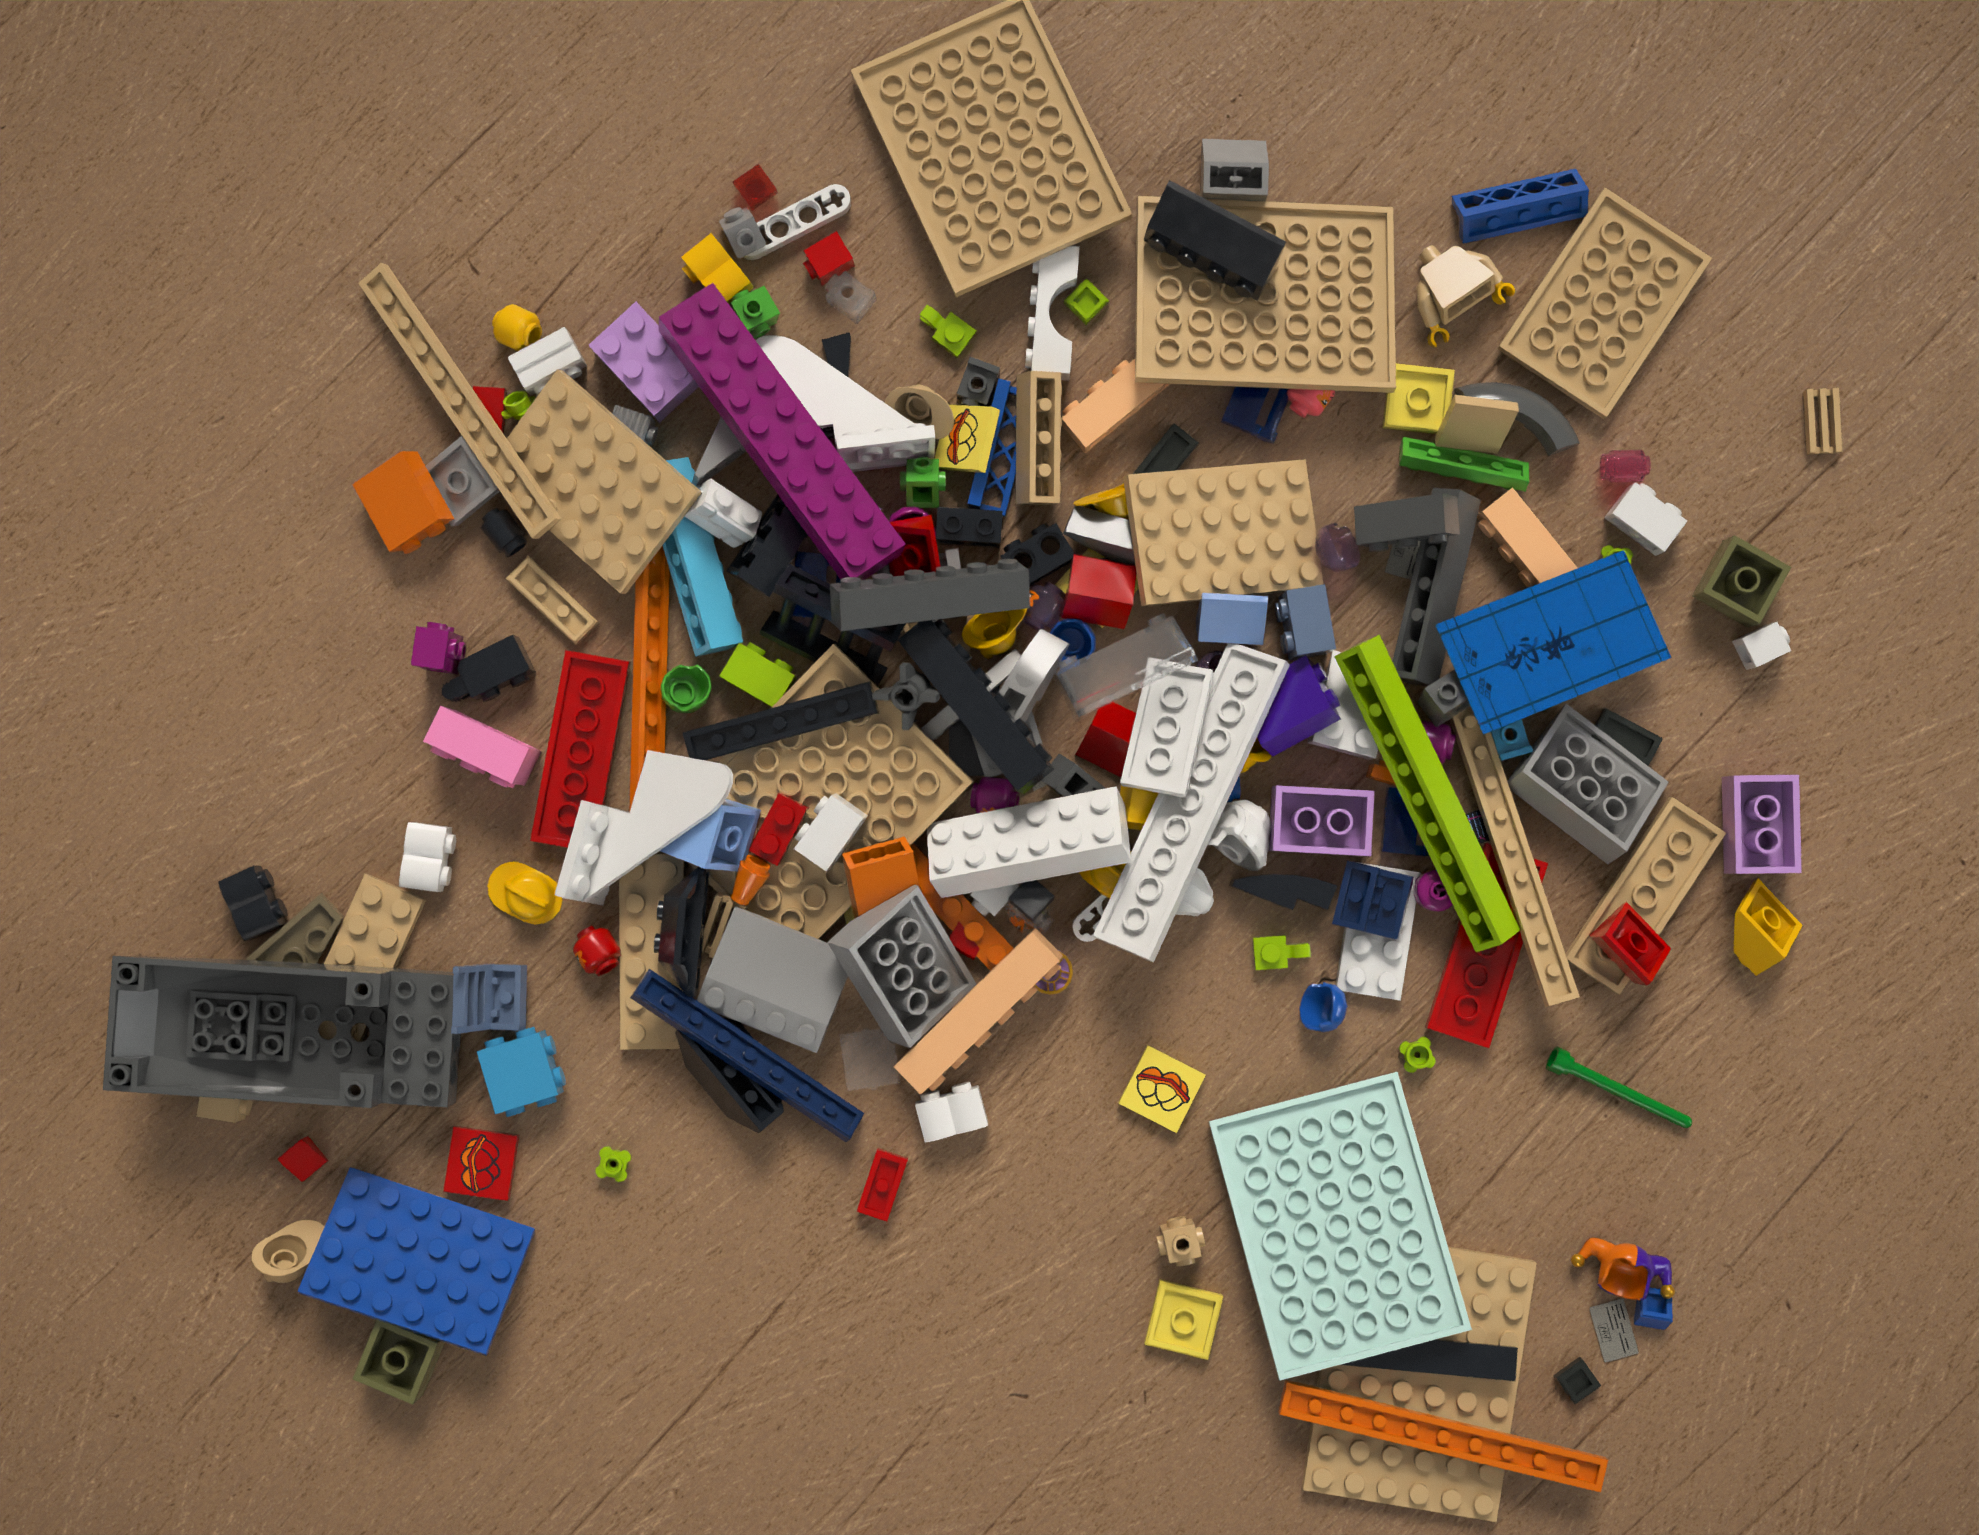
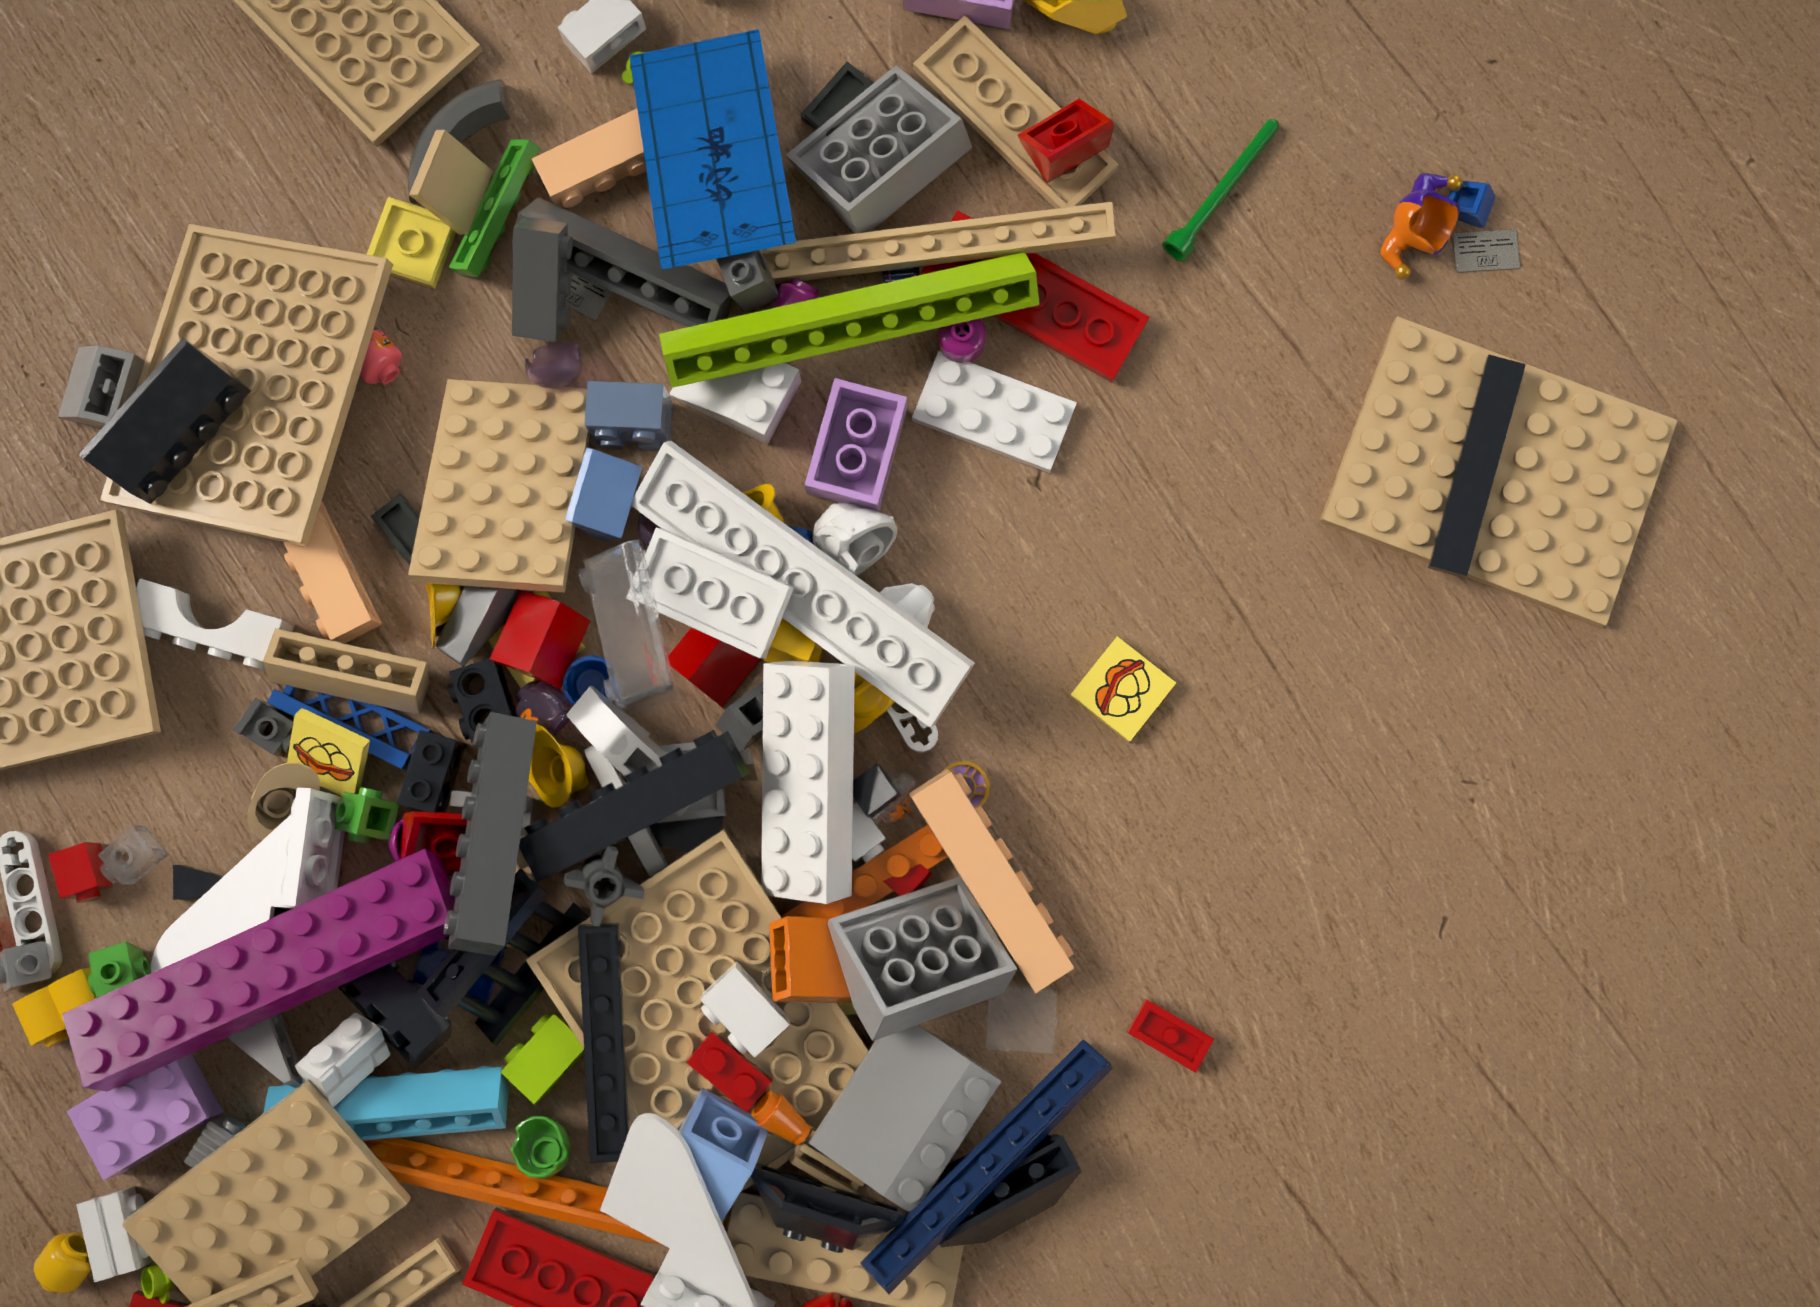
camera: 75 degrees left, 5 degrees down
(950, 333) = (203, 747): lime plate -> none
(951, 1112) = (1102, 936): white brick -> none
(993, 794) = (744, 810): magenta head -> none
(1086, 301) = (209, 586): lime tile -> none
(1173, 1231) = (1289, 711): tan brick -> none
(1183, 1319) = (1389, 719): light yellow tile -> none
(1245, 407) = (371, 431): clear blue plate -> none
(1272, 952) = (994, 530): lime plate -> none
(1286, 889) = (926, 501): black slope -> none
(1299, 707) = (722, 441): dark purple brick -> none
(1323, 1007) = (1067, 488): blue hair -> none
(1339, 1226) = (1317, 522): light aqua plate -> none
(1373, 900) = (957, 407): dark blue slope -> none
(1380, 773) = (819, 367): orange plate -> none
(1398, 827) = (882, 360): clear blue plate -> none
(1411, 1062) = (1148, 389): lime plate -> none
(1443, 1436) = (1572, 458): orange plate -> none
(1454, 284) = (292, 176): tan torso -> none
(1516, 747) = (819, 214): dark azure brick -> none
(1523, 209) = (227, 86): blue fence -> none
(1577, 1380) = (1534, 300): pearl dark grey tile -> none
(1624, 466) = (538, 37): clear pink brick -> none

